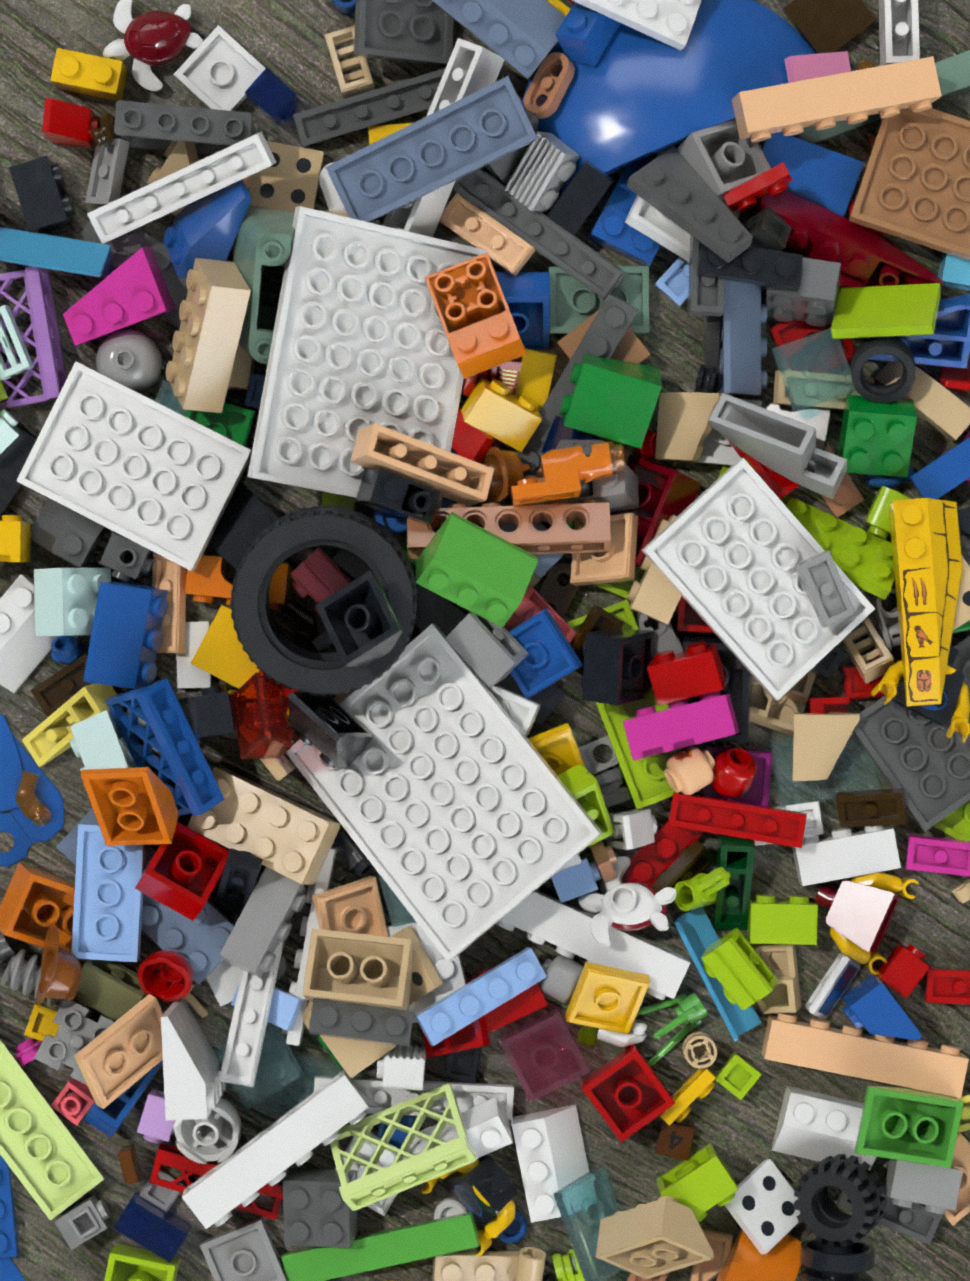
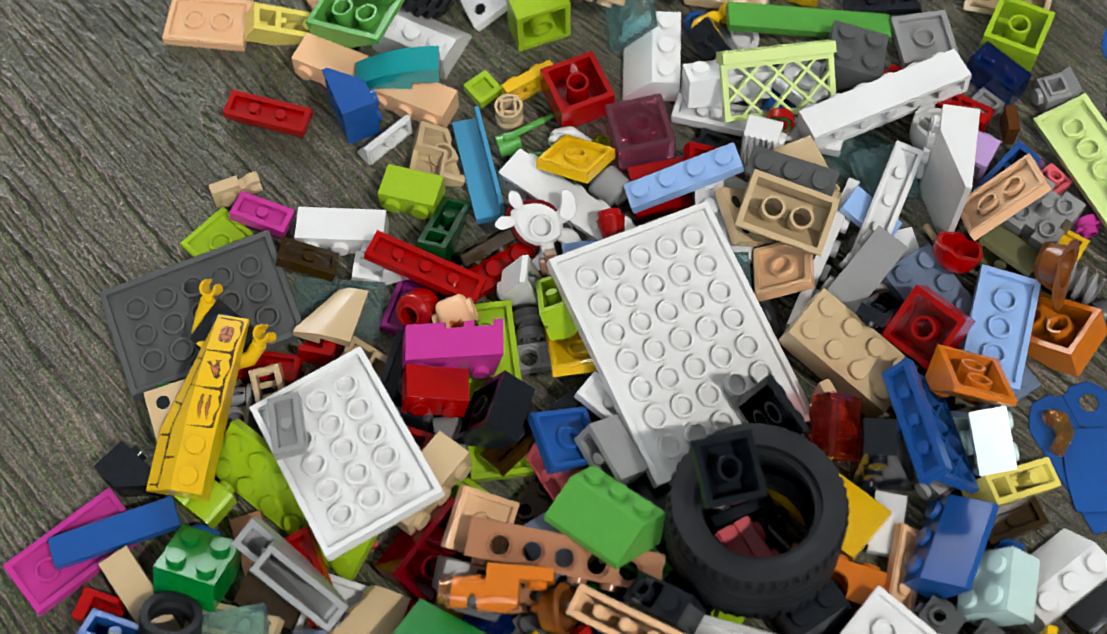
camera: 160 degrees left, 25 degrees down
(388, 1098) = (783, 115): none -> red tile
(545, 913) = (610, 222): none -> red cone
(675, 1140) = (546, 51): reddish brown tile -> none
(701, 889) = (473, 226): lime axle -> none
(738, 969) = (458, 158): lime brick -> none
(837, 1064) = (400, 68): none -> teal slope
(862, 913) = (341, 182): torso -> none
(903, 969) = (323, 136): red brick -> none

